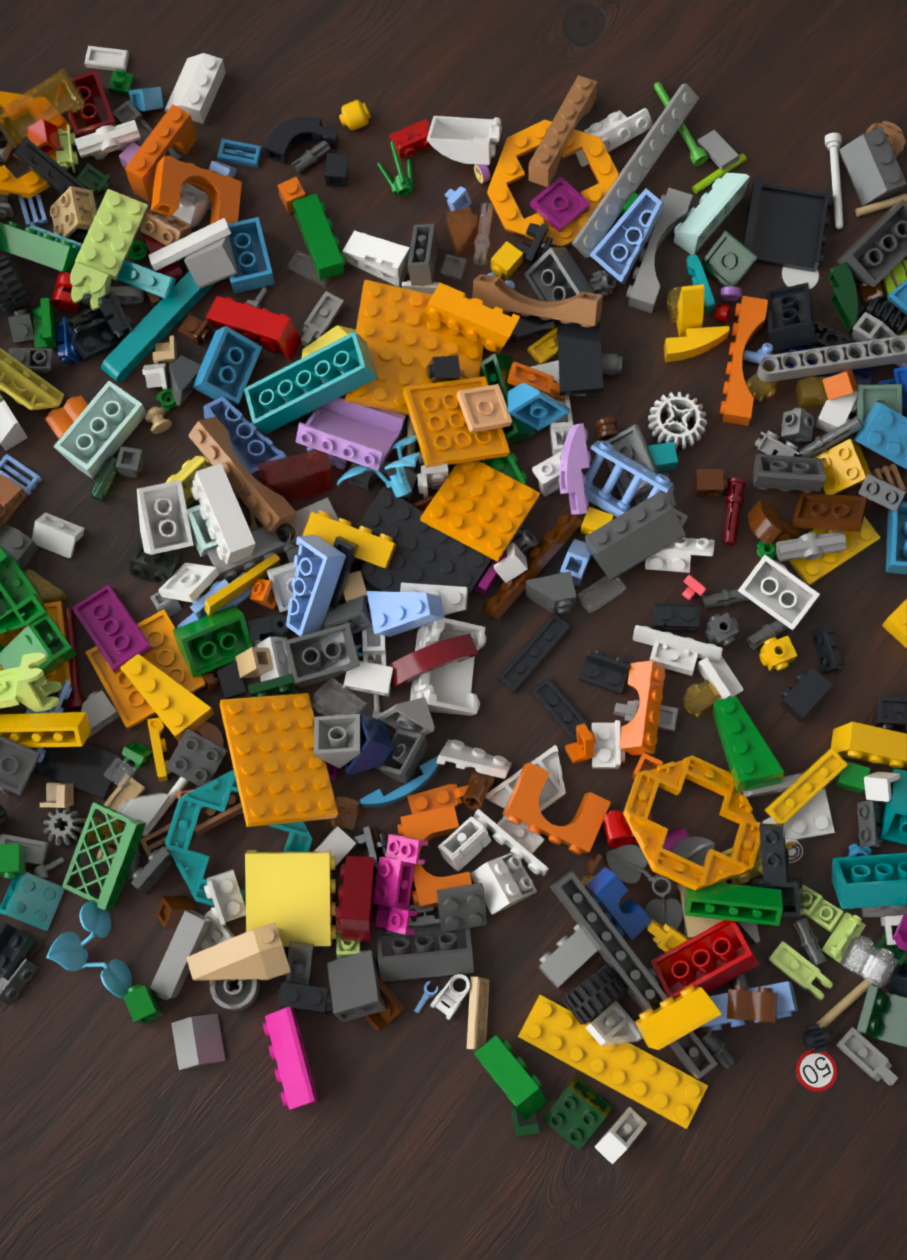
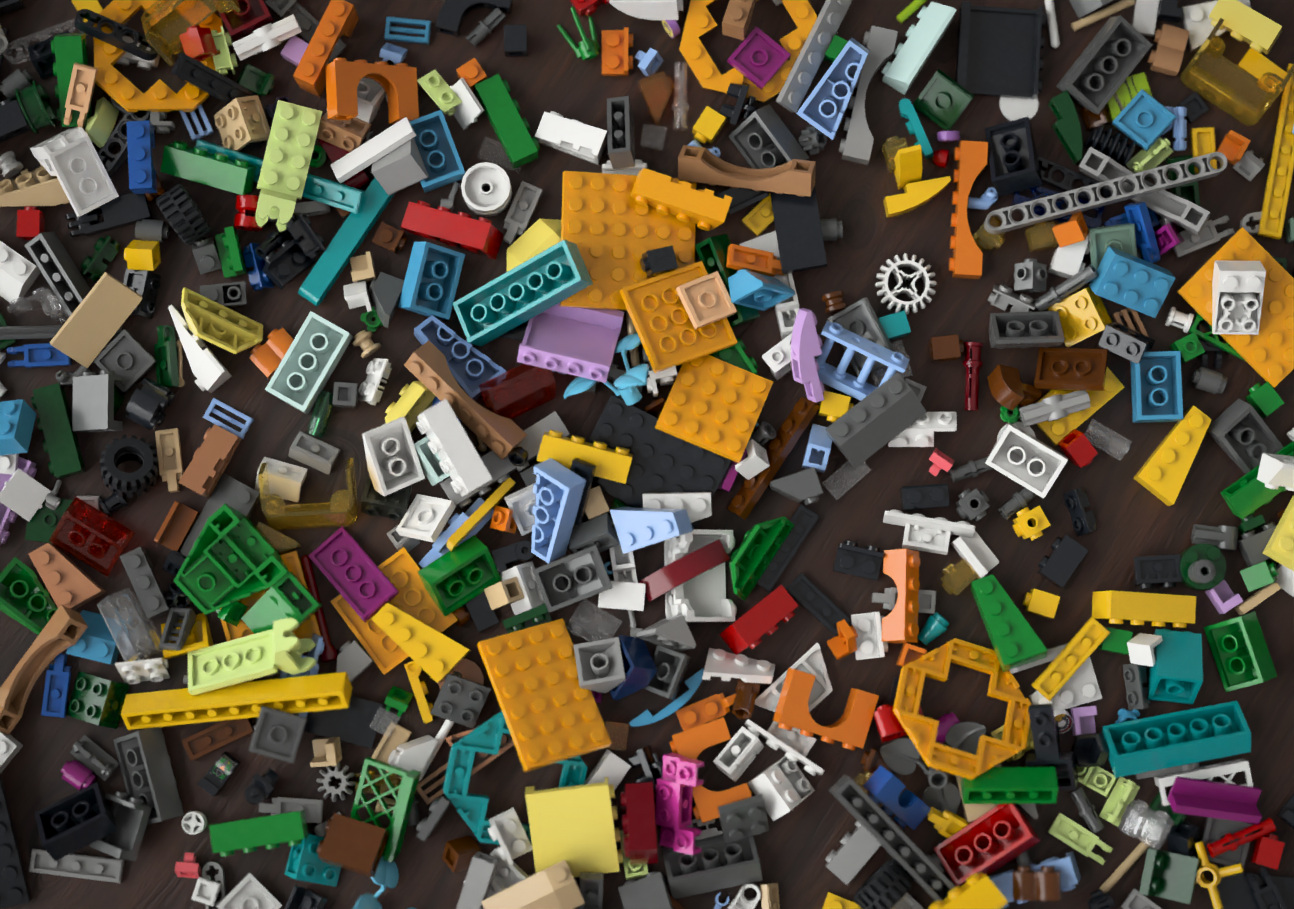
camera: 10 degrees left, 10 degrees up
(68, 886) = (353, 845): none -> reddish brown brick
(92, 515) = (313, 452): none -> light grey slope
(107, 569) = (340, 511): none -> clear yellow windscreen
(166, 448) = (376, 370): none -> white hinge
(261, 206) = (440, 92): none -> yellowish green hinge
(280, 217) = (470, 108): none -> white piece
(291, 292) = (475, 181): none -> white wheel
(427, 191) = (616, 52): none -> orange bracket
(500, 716) = (759, 620): none -> red wedge
(506, 651) = (756, 553): none -> green wedge
(672, 744) = (933, 628): none -> teal cone
(781, 732) = (1041, 603): none -> yellow brick
(813, 851) = (1083, 720): none -> lavender panel
(818, 880) = (1090, 750): none -> black panel
(830, 588) = (1078, 448): none -> red brick
(858, 585) = (1107, 440): none -> clear hinge

